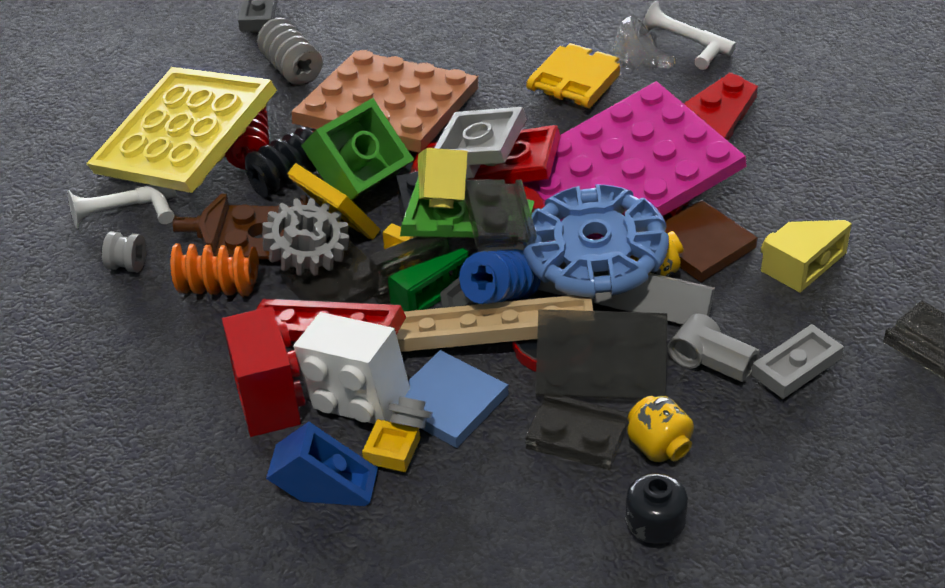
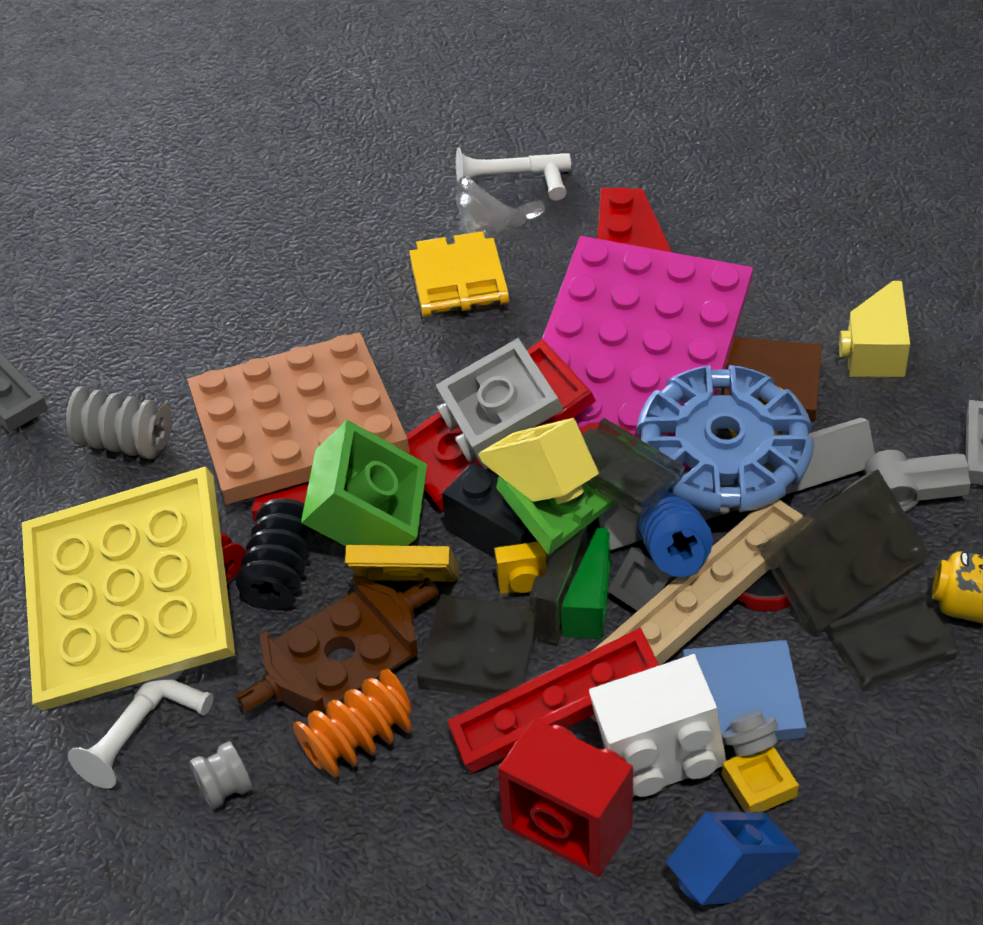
camera: 40 degrees left, 5 degrees up
(305, 236) = (433, 621): light grey gear -> none

